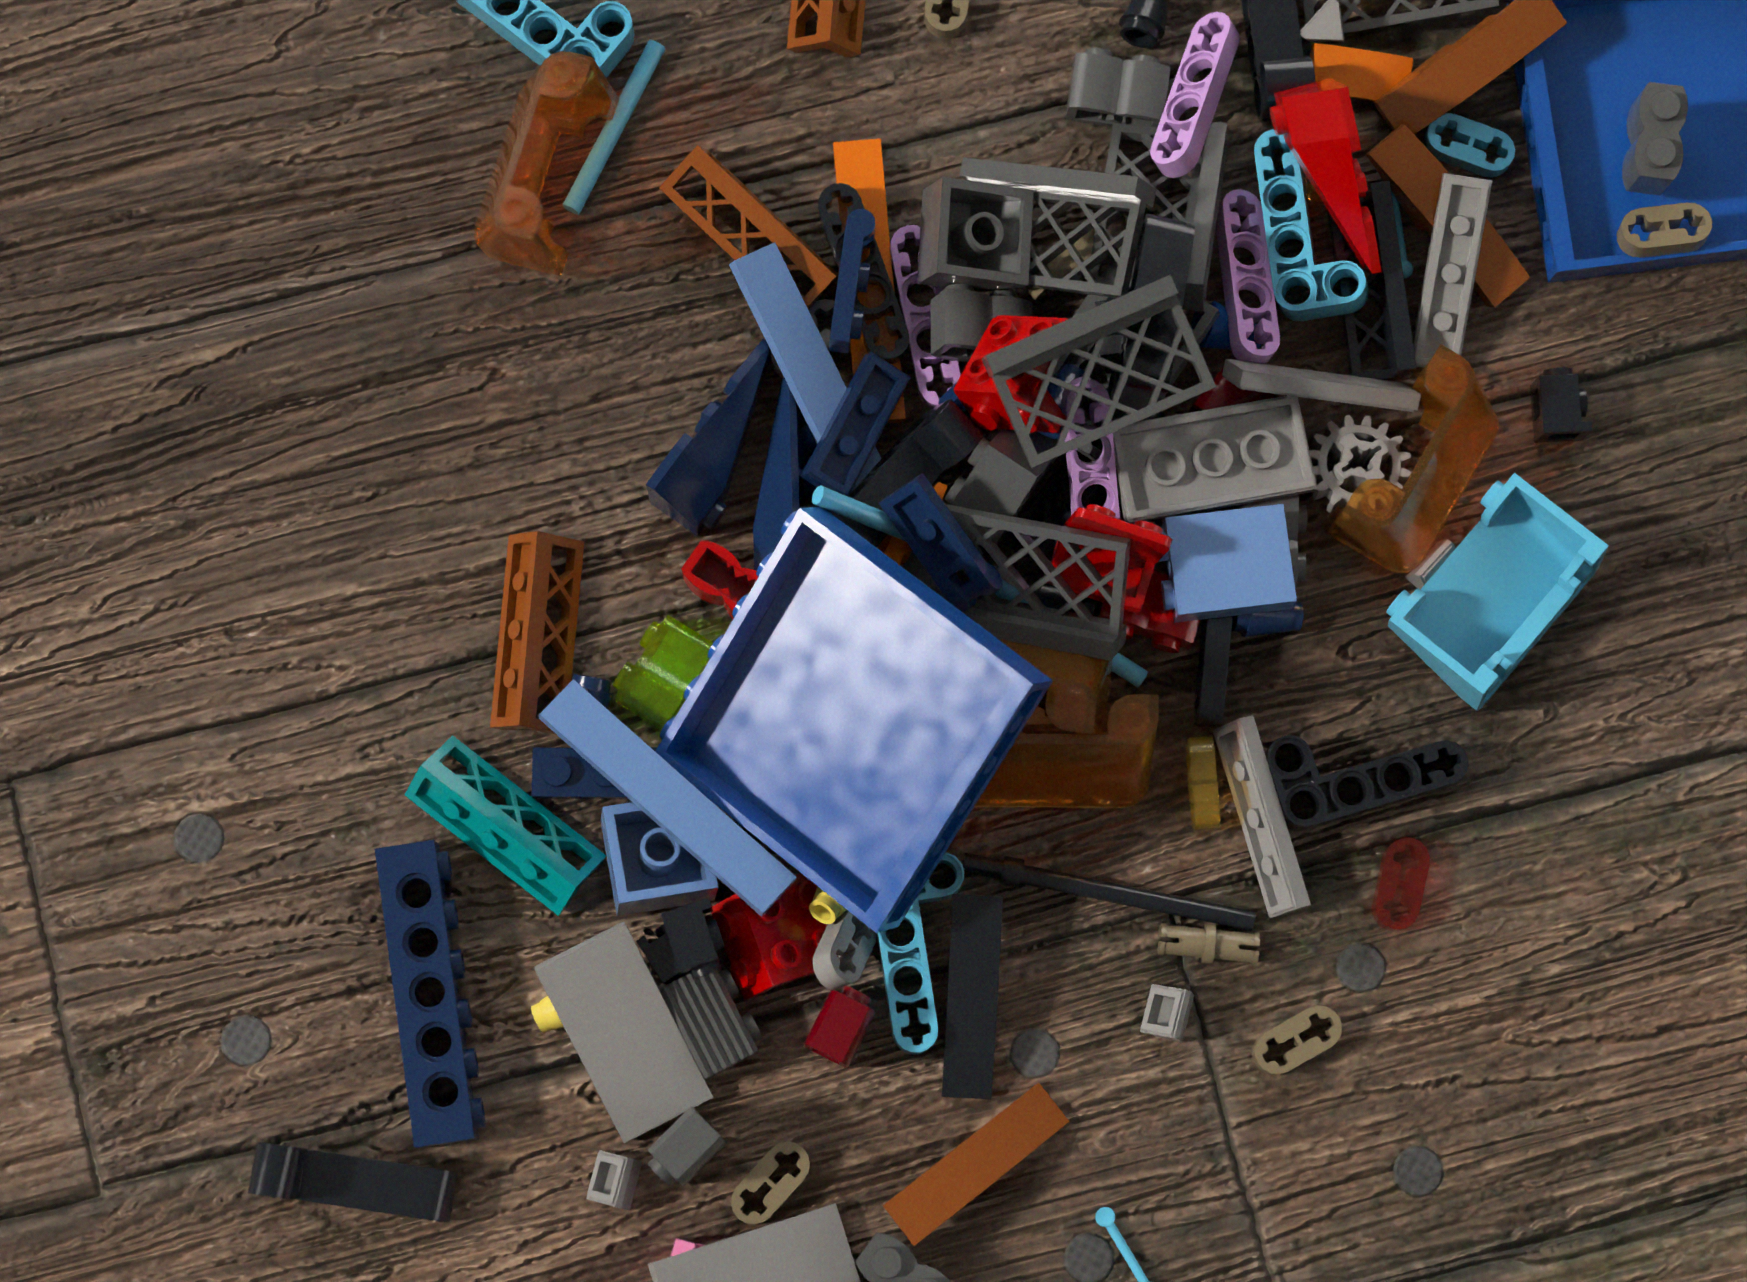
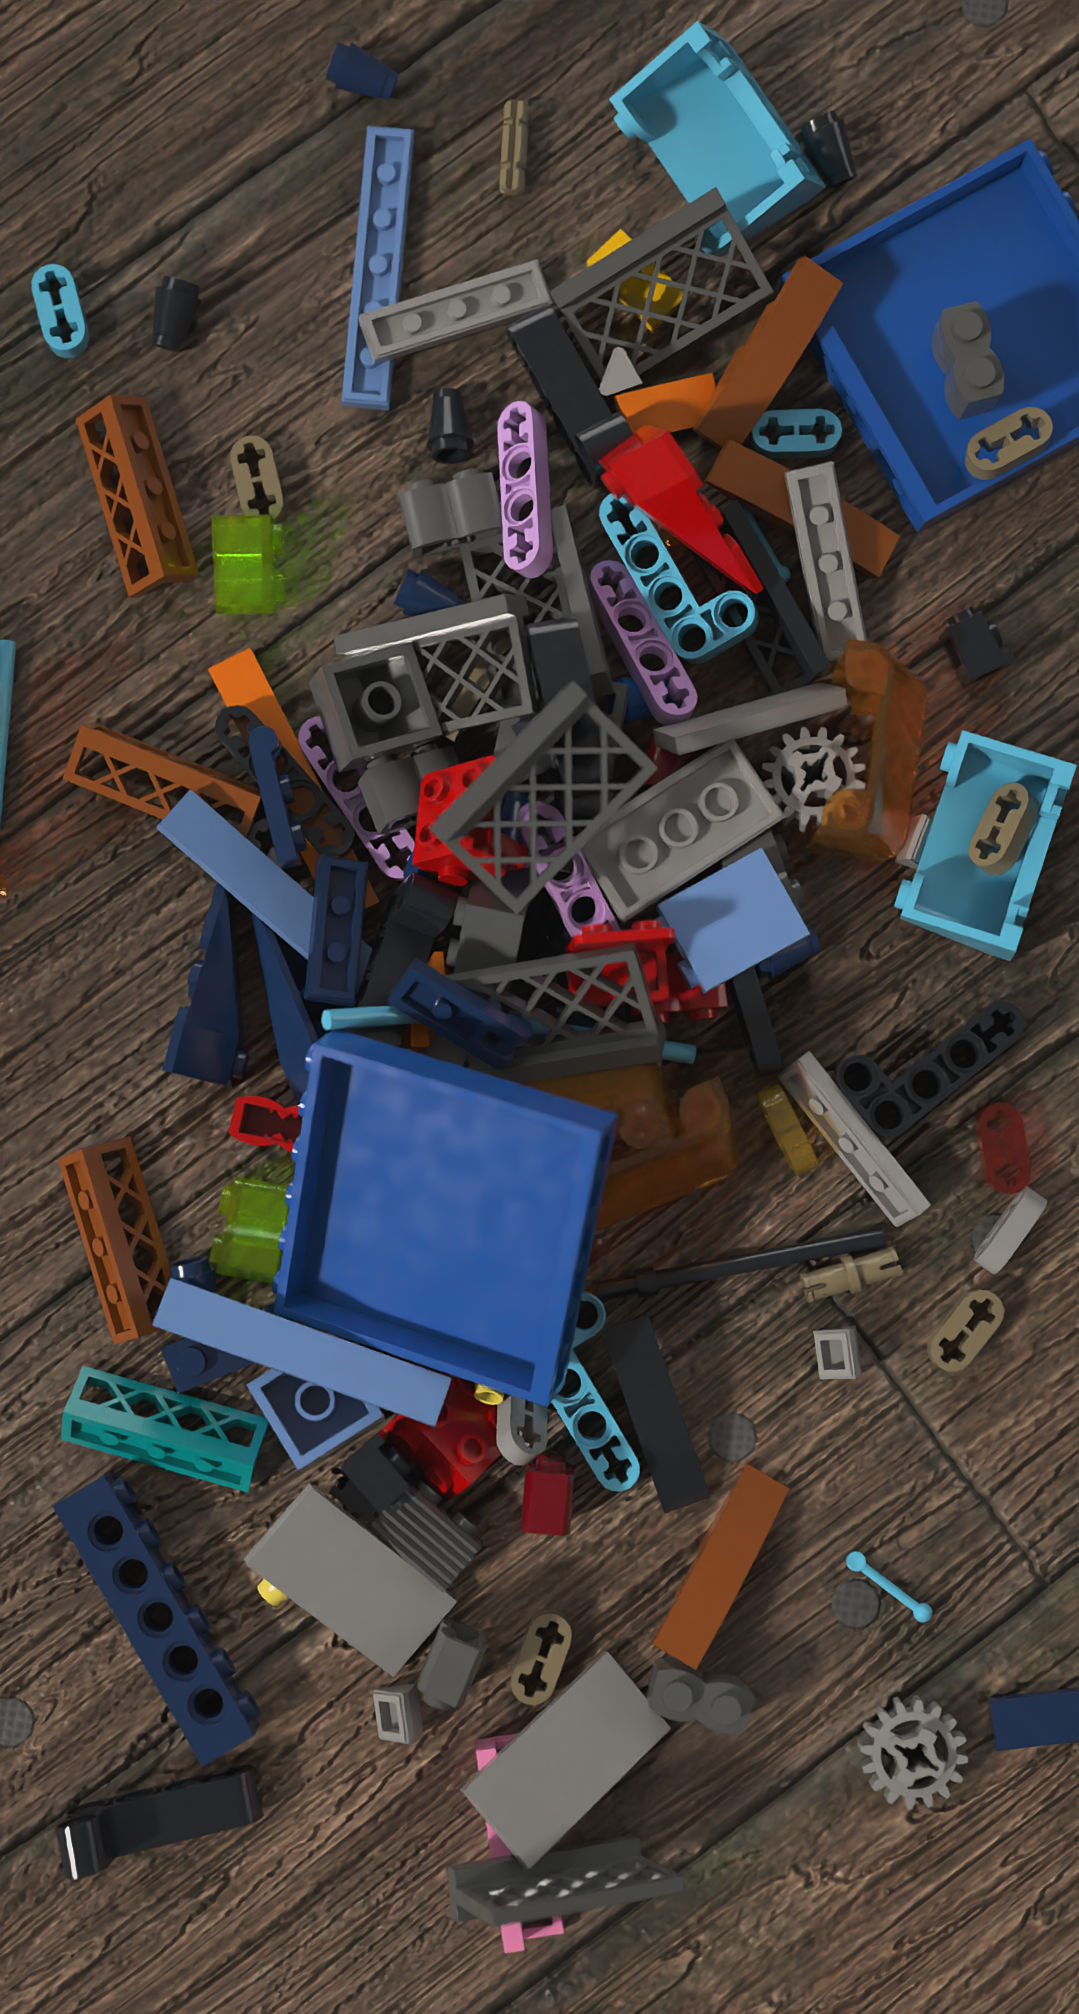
camera: 20 degrees left, 5 degrees up
(908, 60) = (245, 563): none -> clear neon green brick
(1060, 151) = (424, 594): none -> dark blue cone
(1376, 962) = (1010, 1230): none -> light grey beam
(1518, 583) = (1004, 829): none -> dark tan beam

